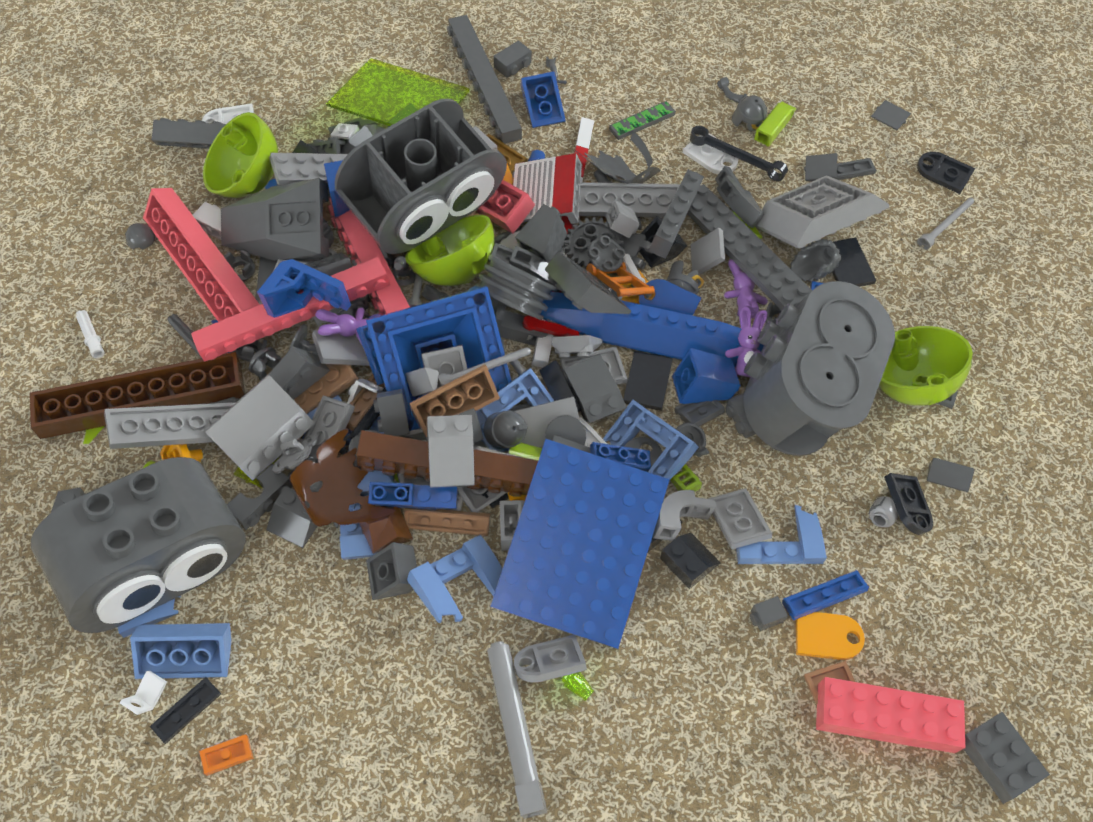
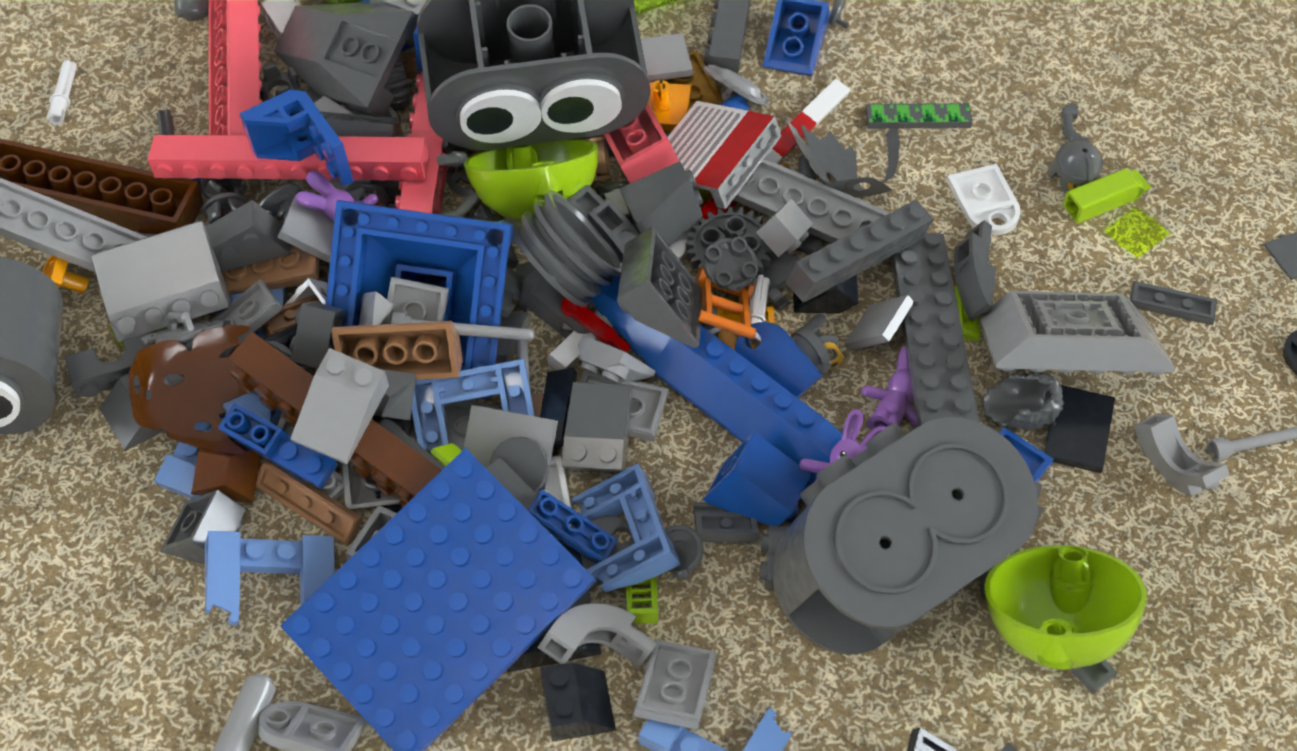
camera: 30 degrees right, 5 degrees down
(499, 430) = (450, 434): dark grey helmet -> none
(529, 143) = (736, 84): none -> light grey shield
(648, 380) = (685, 453): black tile -> none
(738, 153) = (1057, 257): black piece -> none
(803, 137) = (1137, 232): none -> clear neon green piece
(820, 166) = (1133, 280): dark grey piece -> none
(900, 253) = (1172, 457): none -> light grey arch

